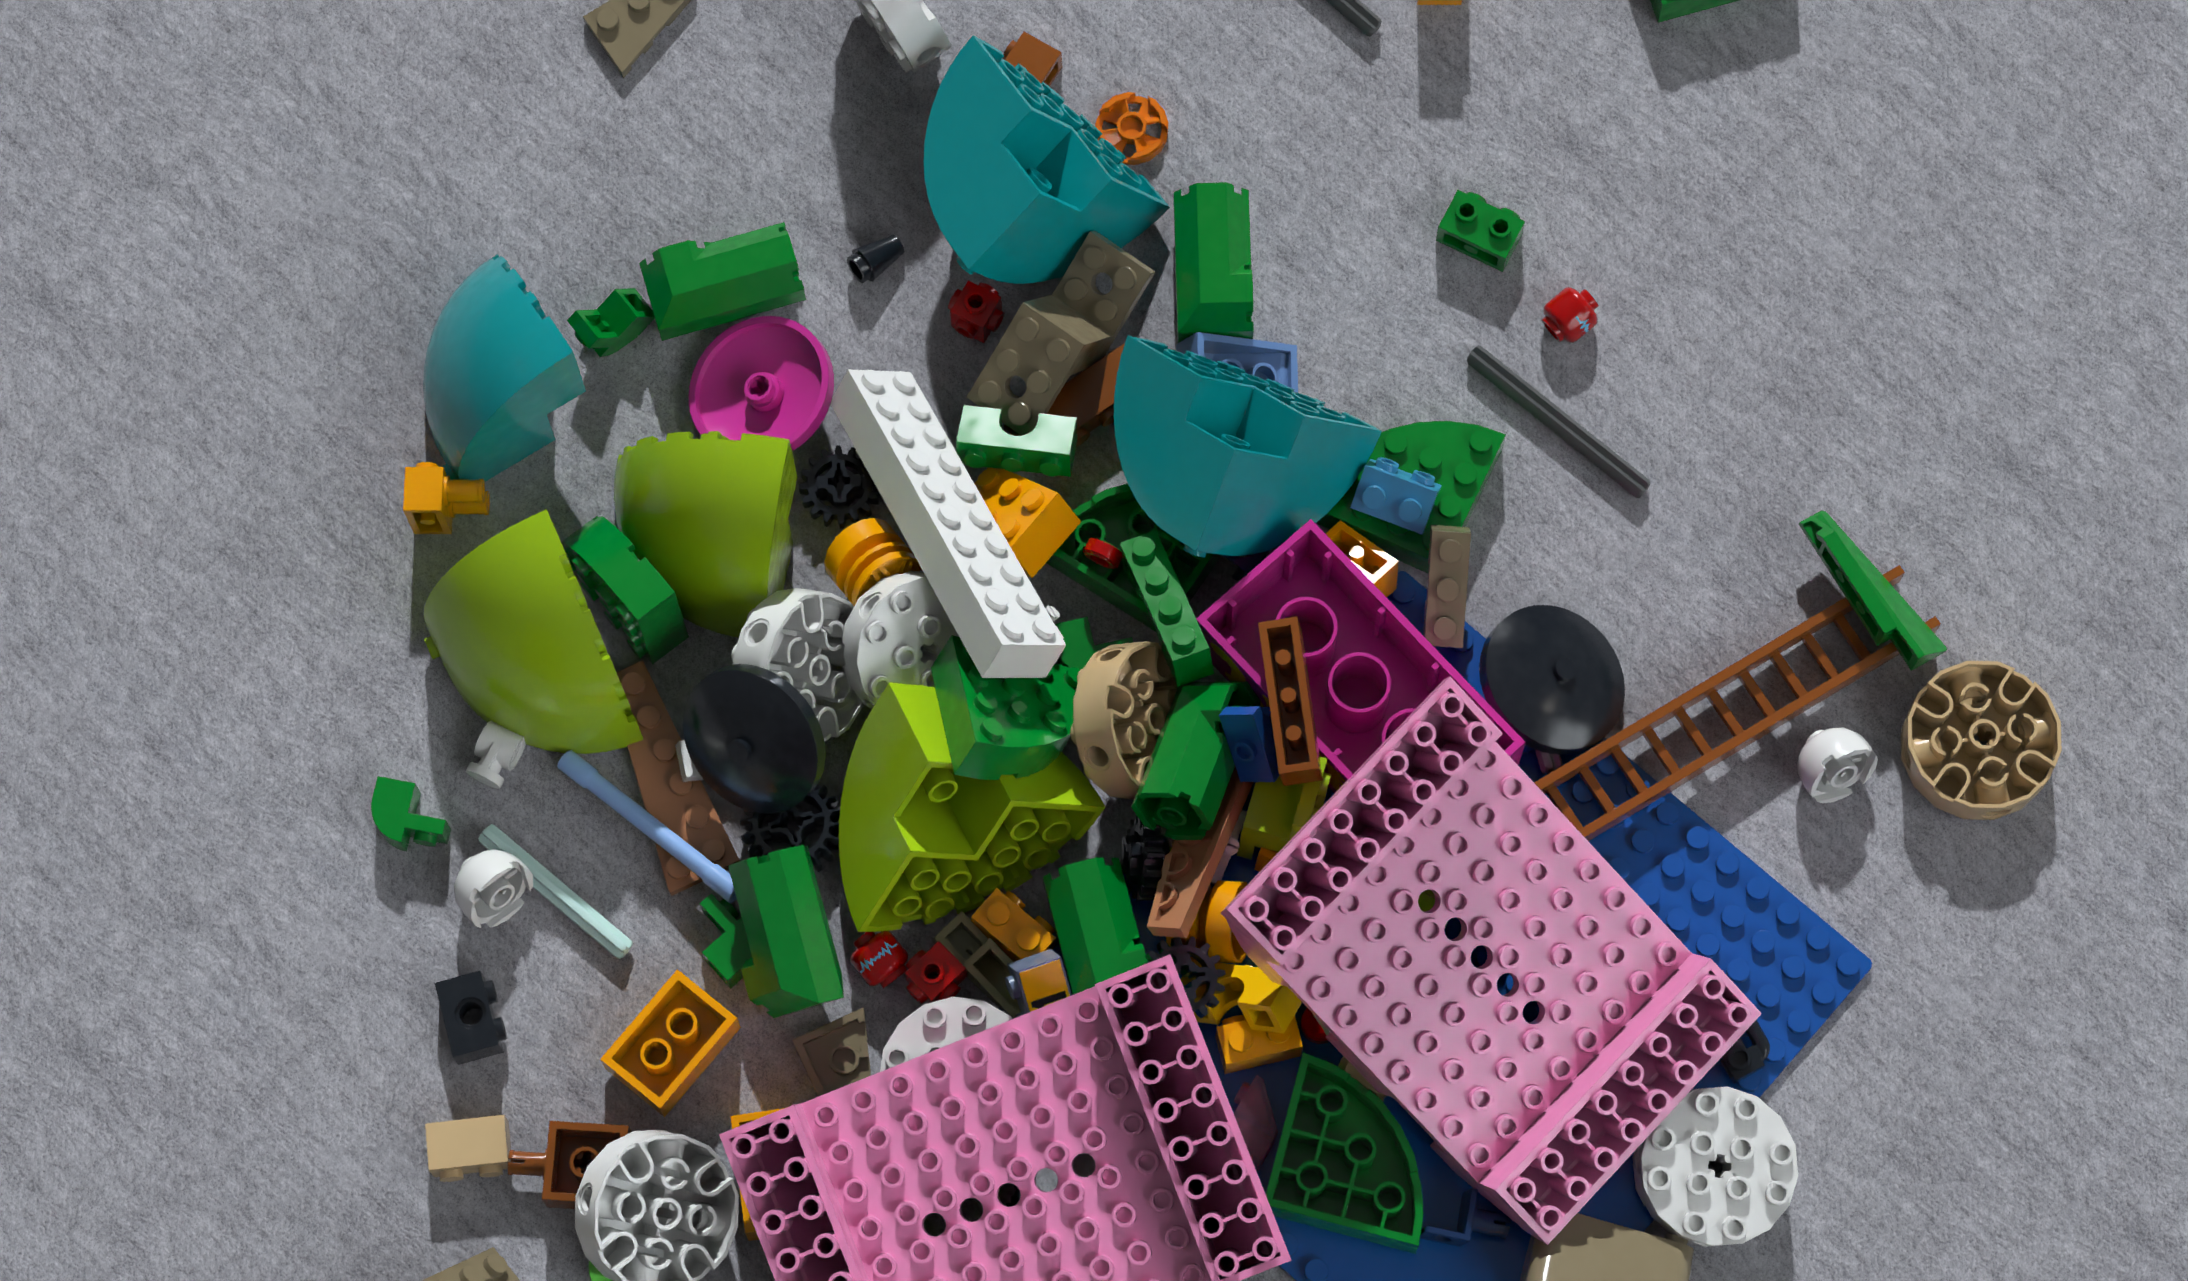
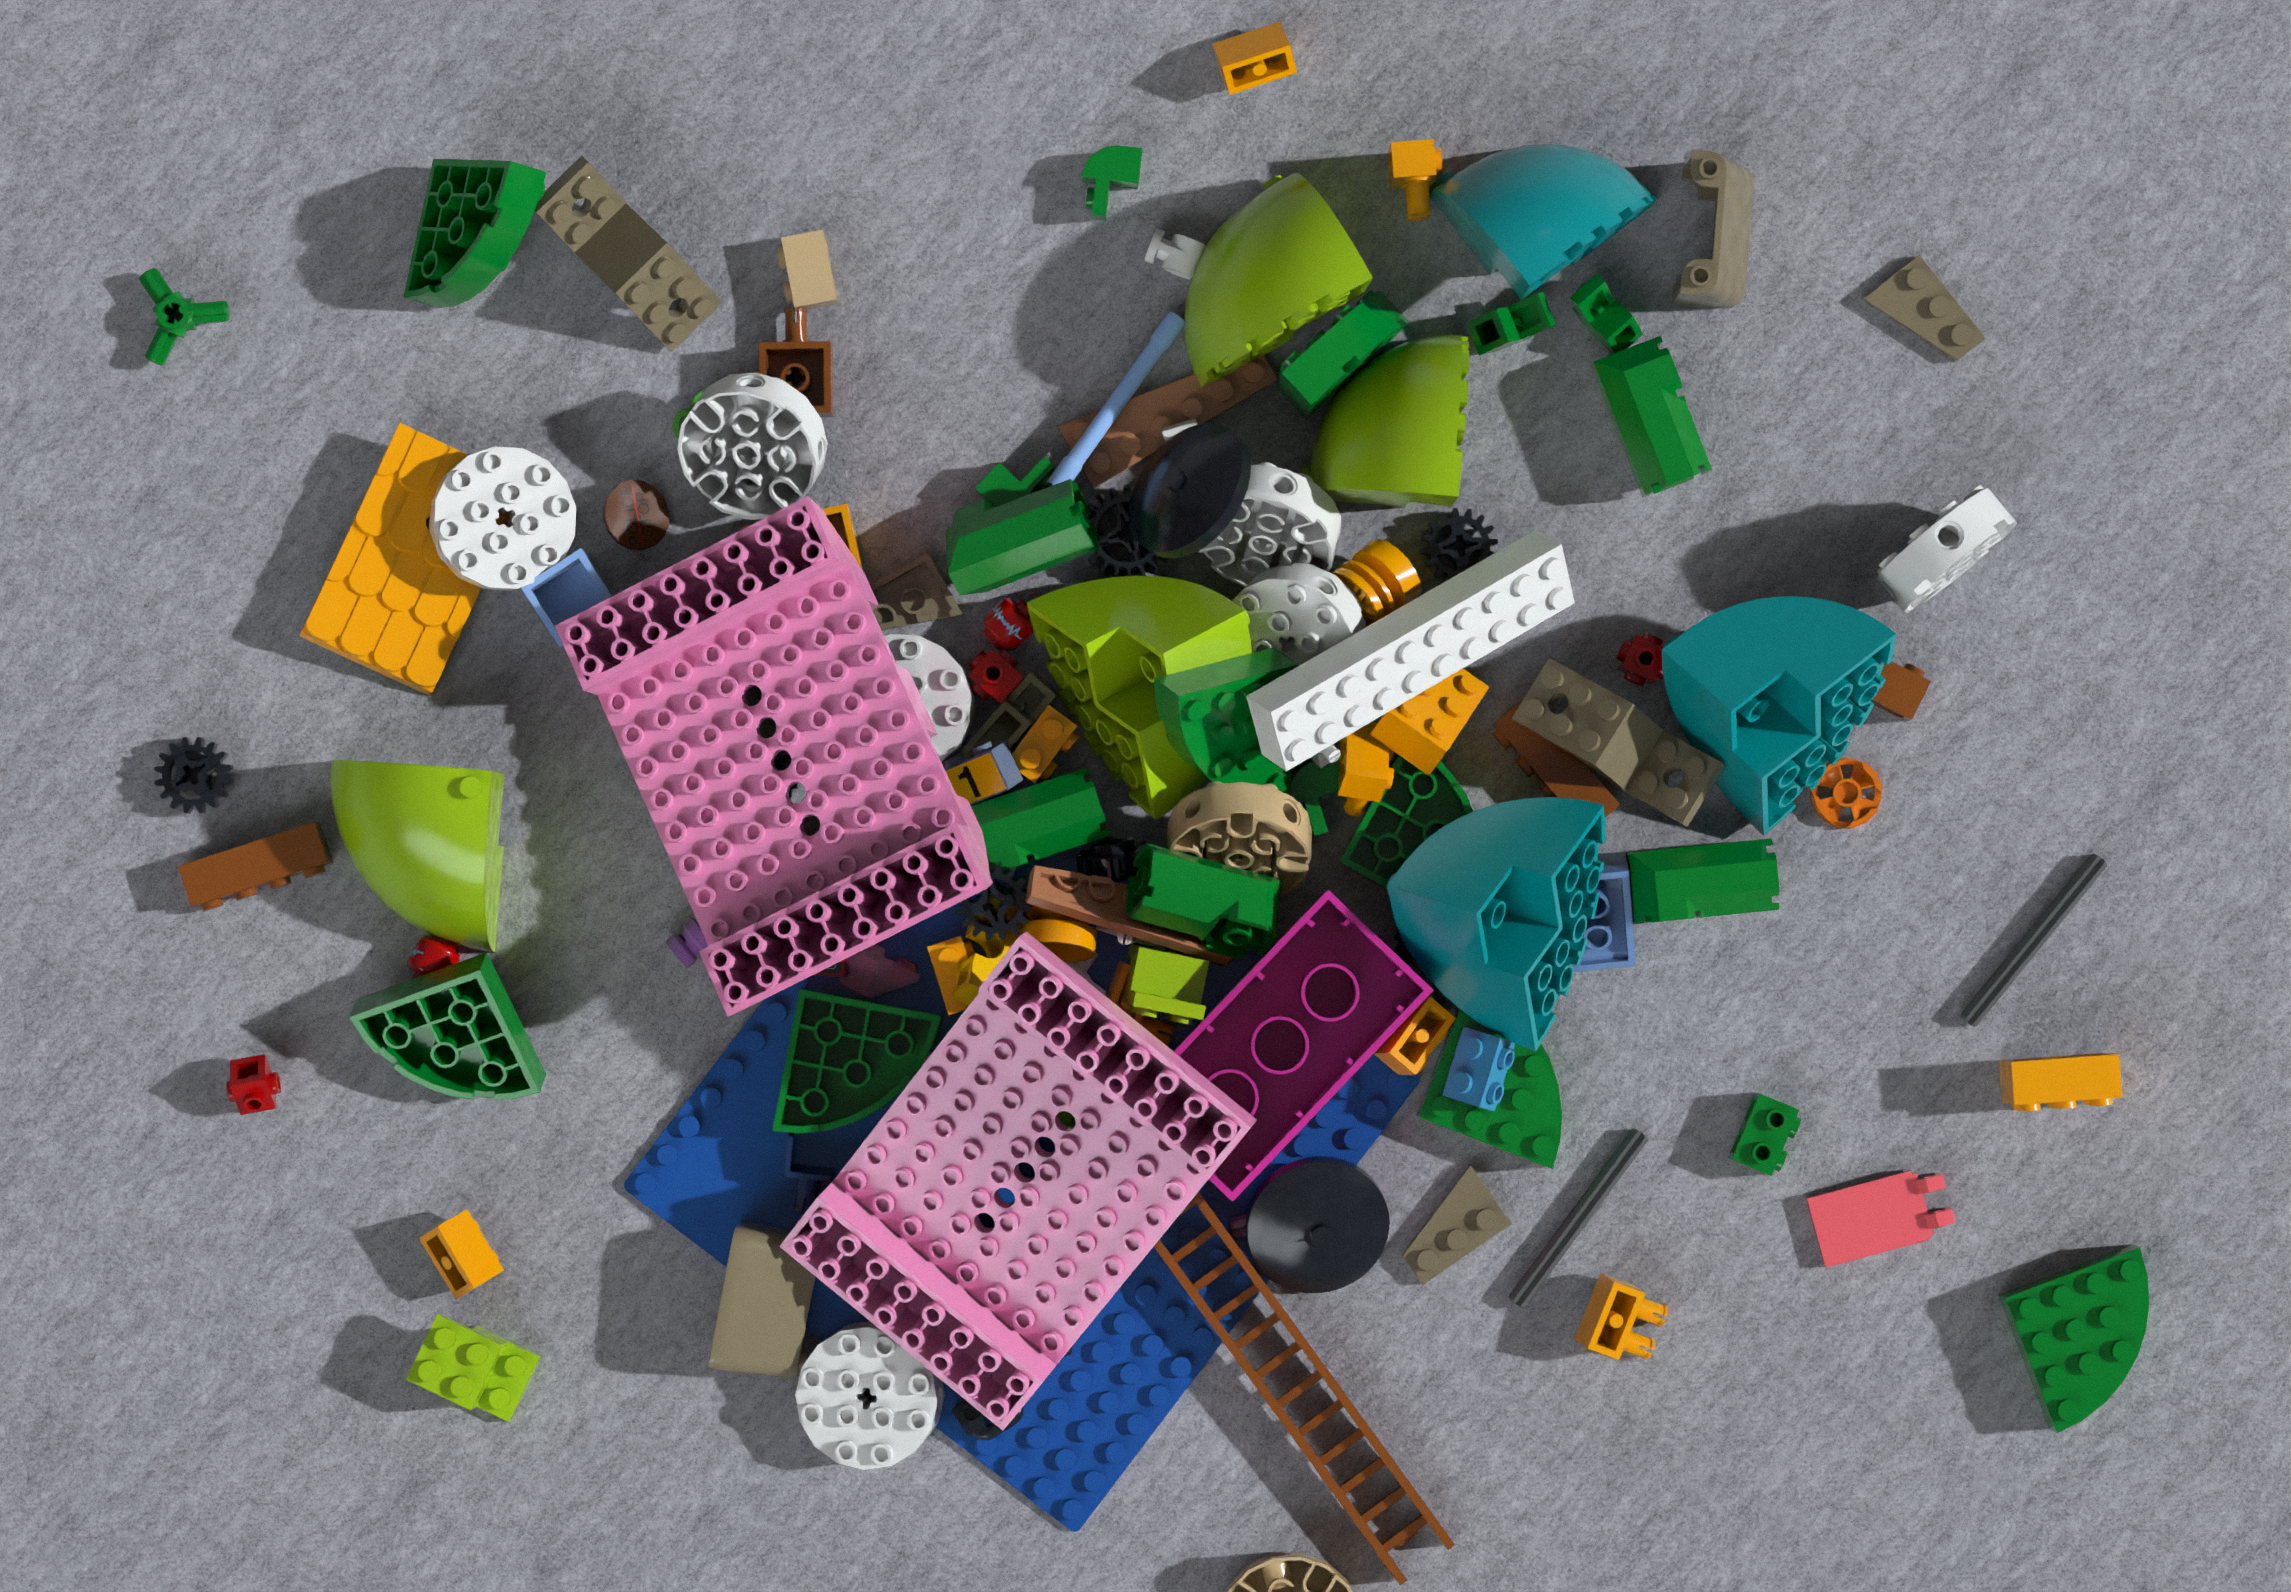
camera: 80 degrees right, 15 degrees up
(295, 654) = (1254, 58): none -> light orange brick
(456, 999) = (941, 242): black brick -> none
(484, 196) = (1721, 279): none -> dark tan windscreen
(491, 887) = (1048, 263): white cylinder -> none
(561, 895) = (1052, 322): light aqua axle -> none
(609, 412) = (1511, 324): none -> green brick
(670, 1043) = (914, 442): light orange brick -> none
(762, 381) = (1547, 463): dark pink dish -> none
(874, 258) = (1691, 558): black cone -> none
(1044, 450) = (1498, 737): arch -> none
(1074, 588) = (1363, 770): none -> light orange brick
(1103, 553) = (1398, 798): red tile -> none
(1168, 607) = (1343, 861): green arch -> none
(1251, 742) = (1217, 953): blue brick -> none
(1290, 701) = (1247, 982): dark orange brick -> none
(1447, 585) = (1394, 1121): dark tan arch -> none
(1562, 543) = (1456, 1227): none -> dark tan wing
(1570, 314) = (1684, 1224): red head -> none
(1571, 130) = (1875, 1216): none -> coral tile
(1665, 390) = (1611, 1316): none -> light orange brick
(1833, 762) = (1259, 1488): white cylinder -> none
(1870, 594) = (1422, 1519): green wedge -> none

